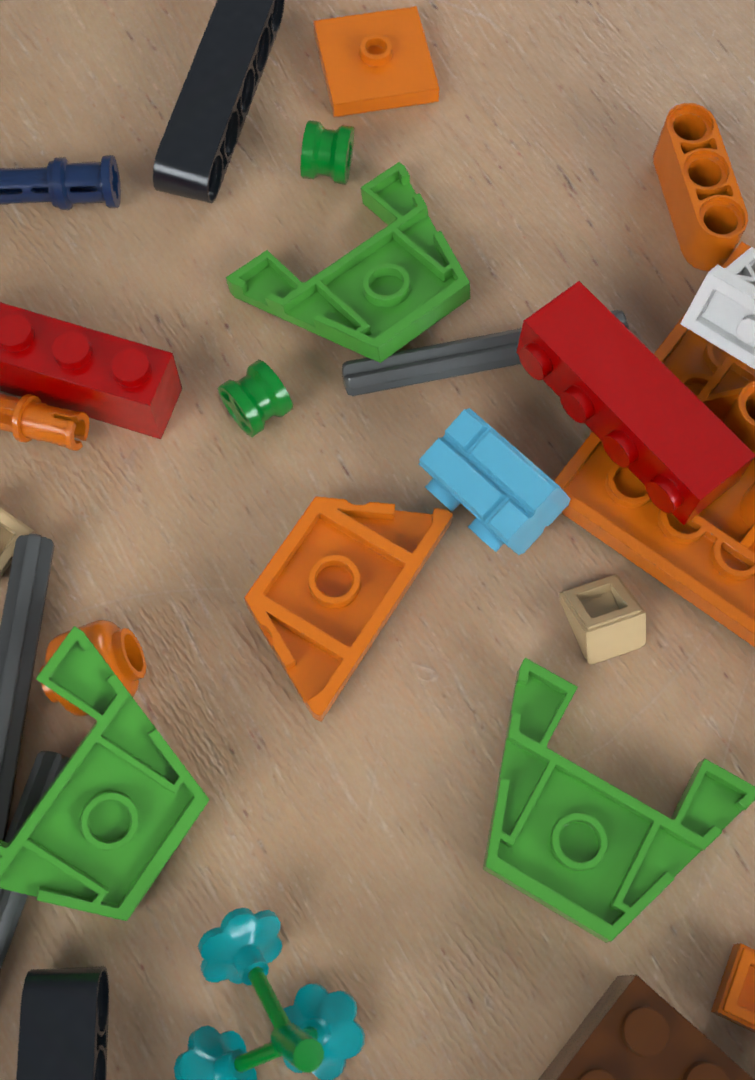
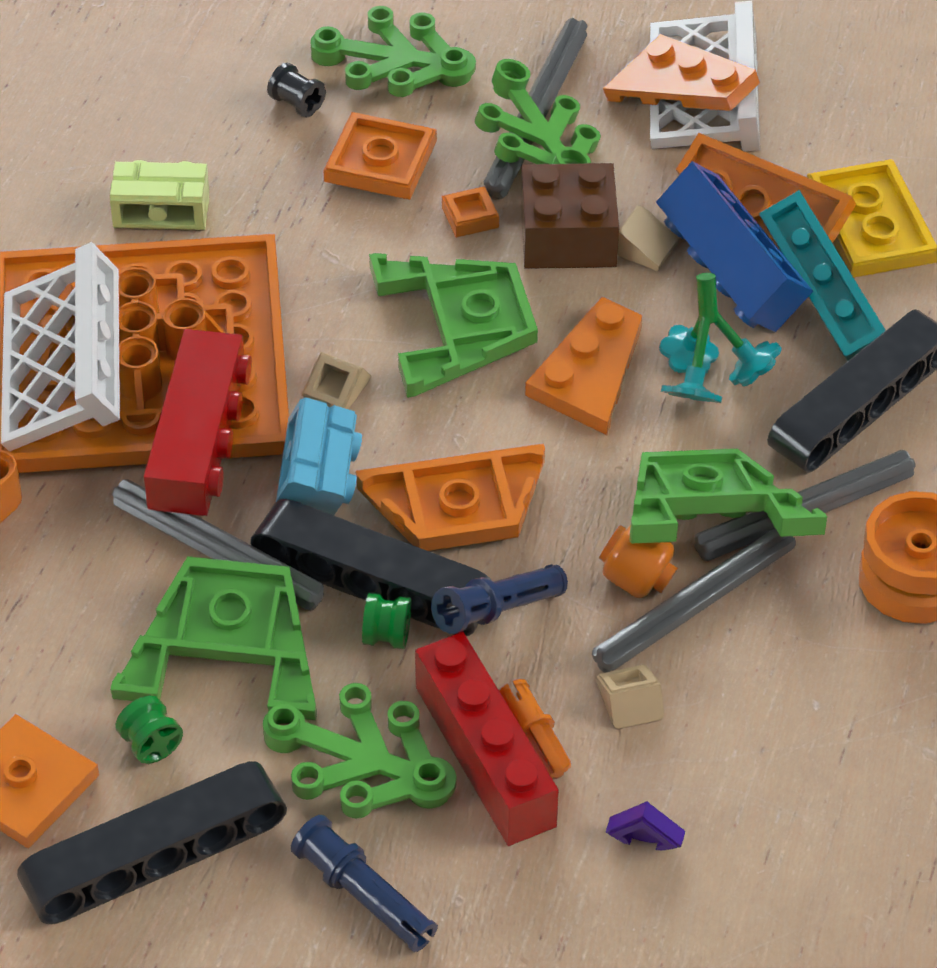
camera: 130 degrees left, 20 degrees down
(144, 279) = (364, 757): none -> bright green plant
(166, 455) = (485, 600): none -> dark blue pin
(321, 441) = (358, 558): none -> black beam
(400, 896) = (589, 366): none -> orange wing

